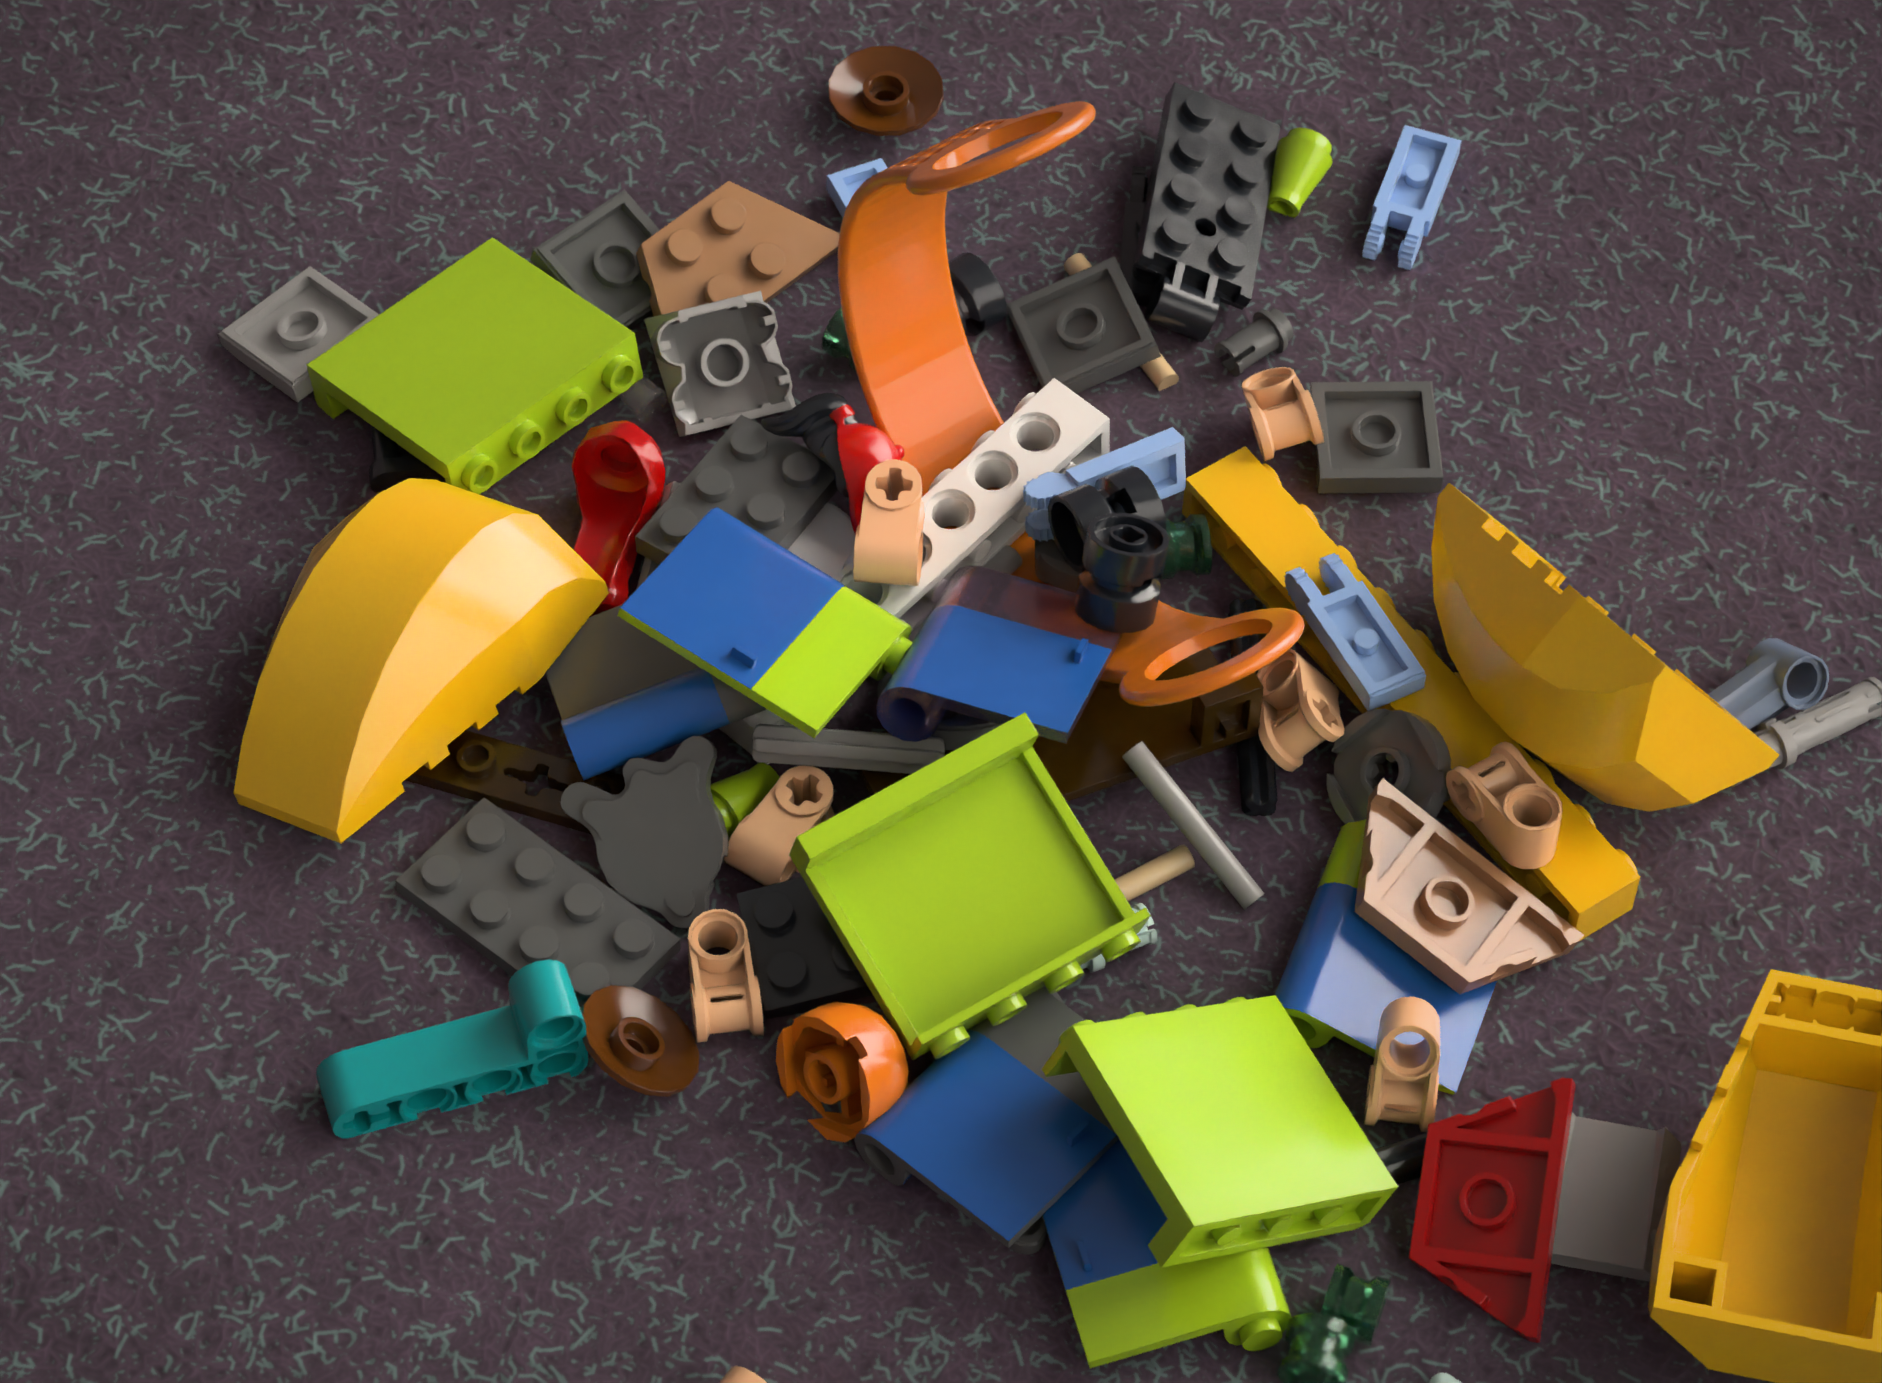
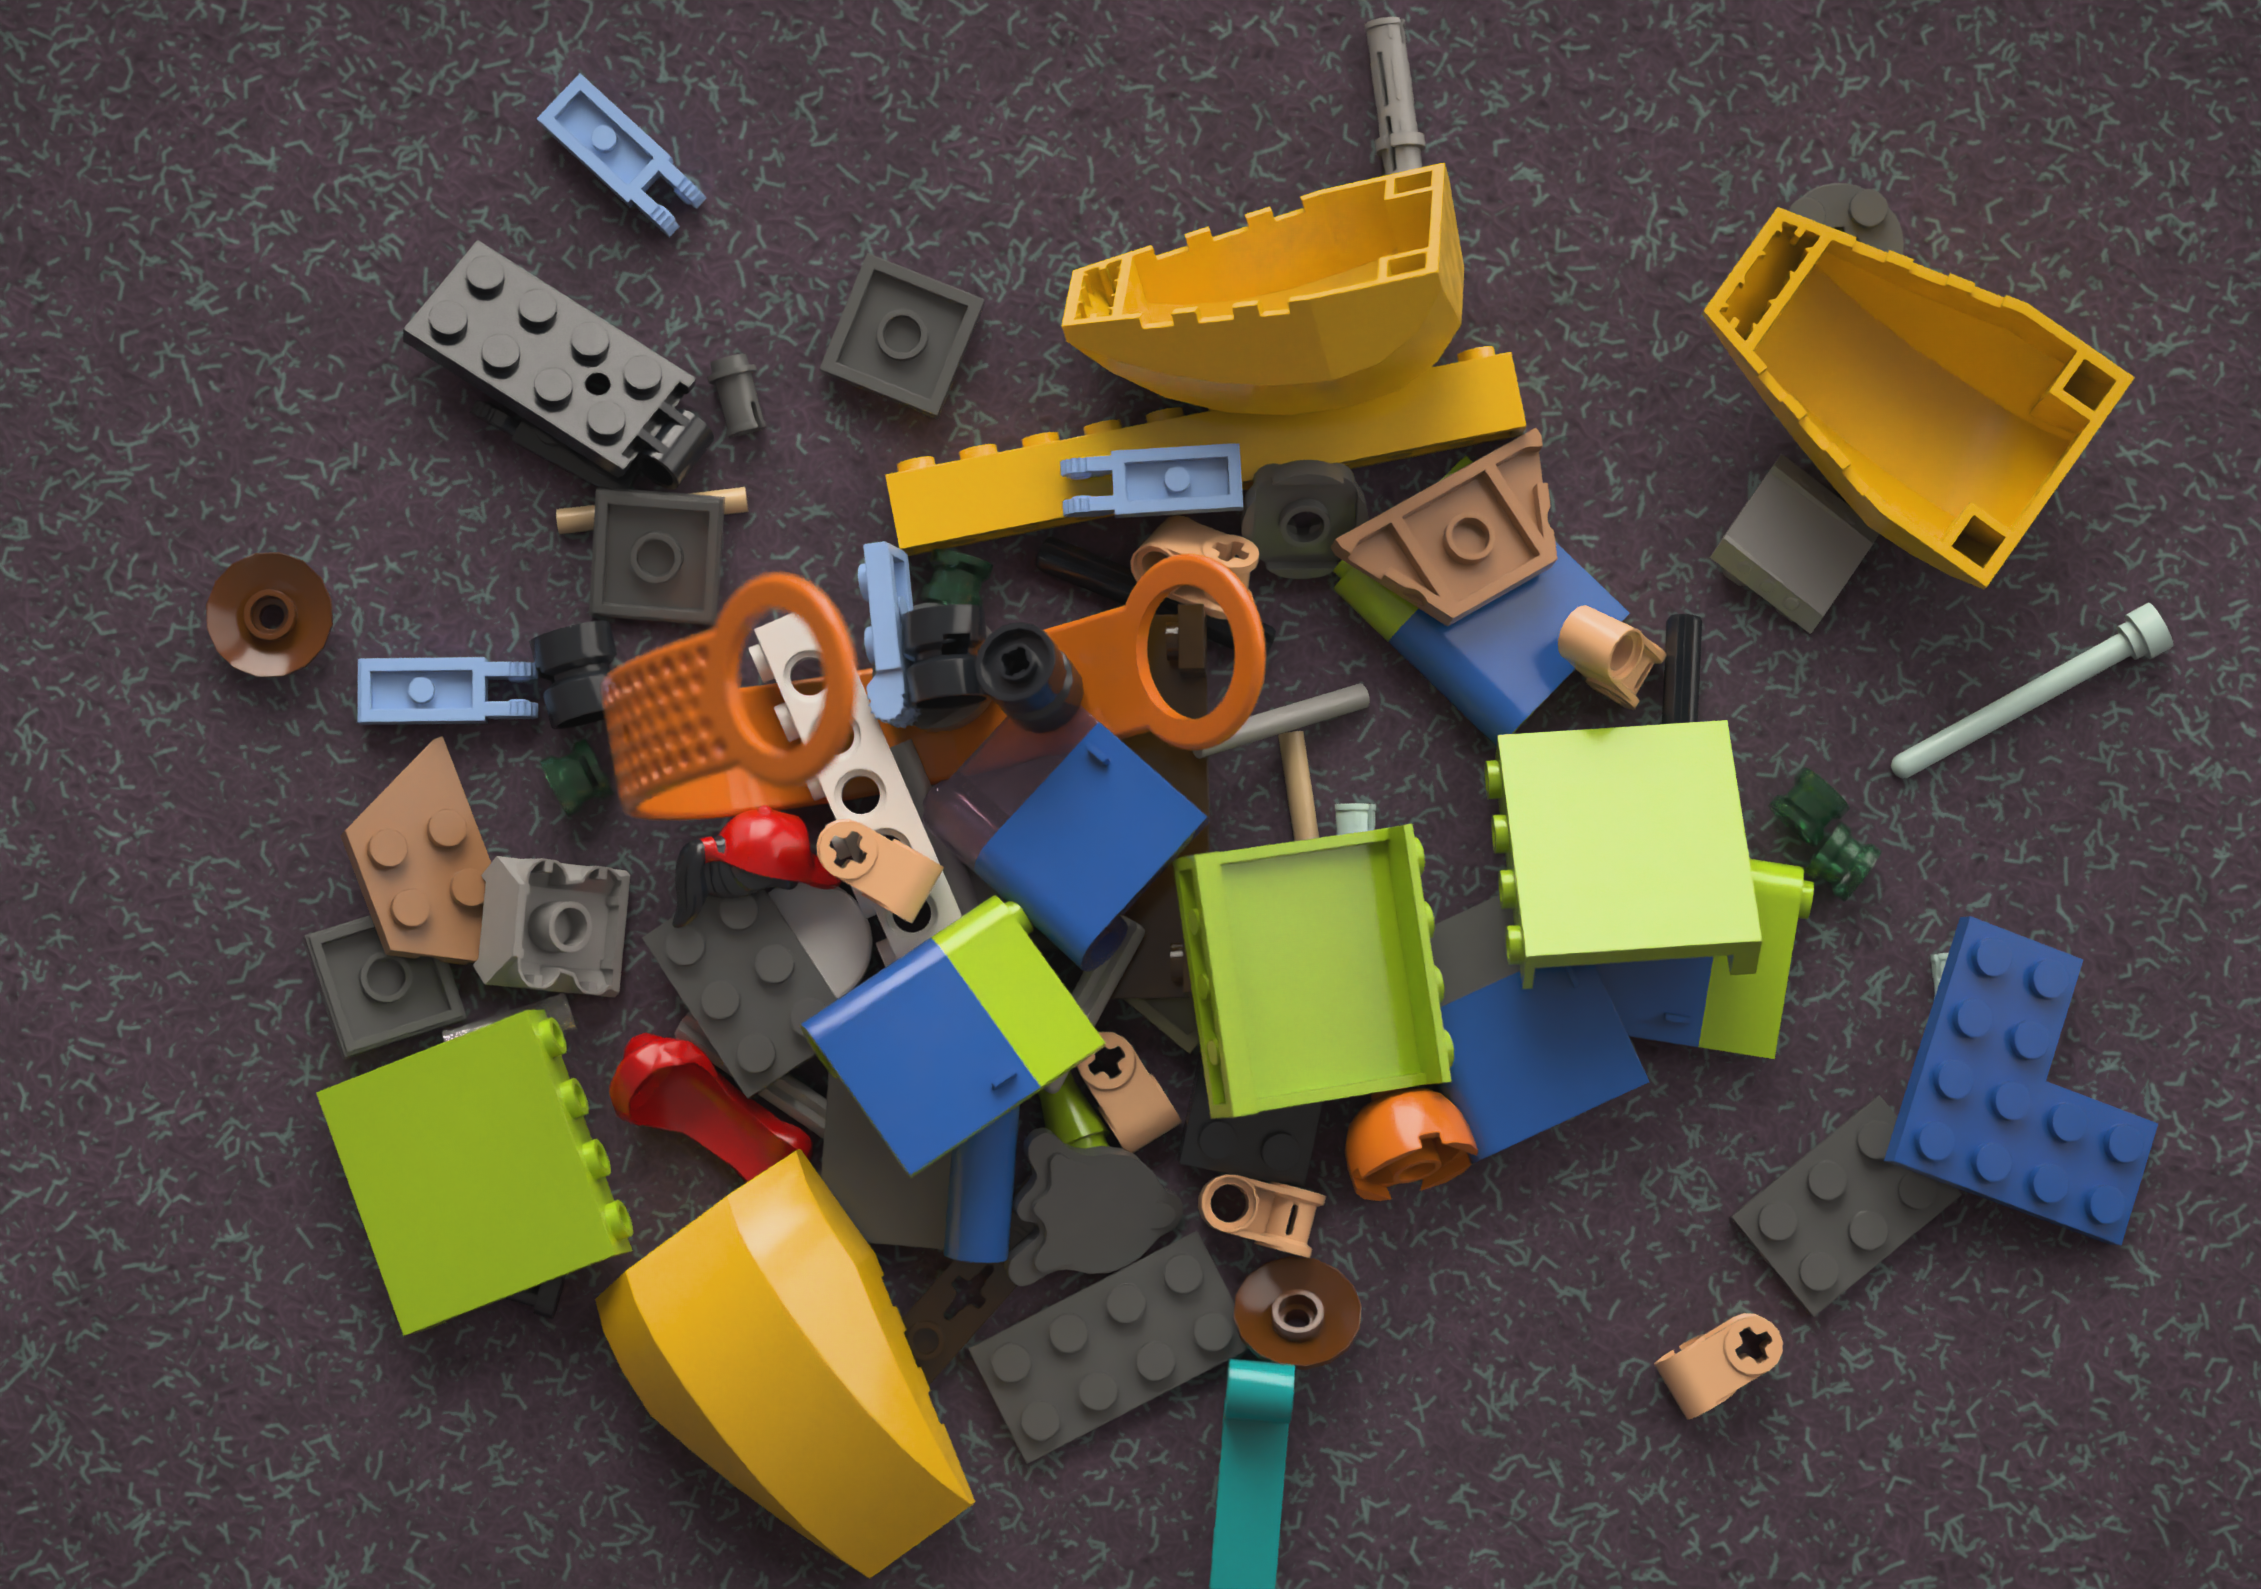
camera: 65 degrees left, 30 degrees up
(294, 329) = (334, 1319): light grey plate -> none
(1280, 410) = (856, 422): light nougat piece -> none
(1298, 167) = (545, 252): lime cone -> none
(1494, 1203) = (1770, 642): red wing -> none
(1509, 806) = (1399, 437): light nougat piece -> none
(1772, 681) = (1341, 112): sand blue piece -> none

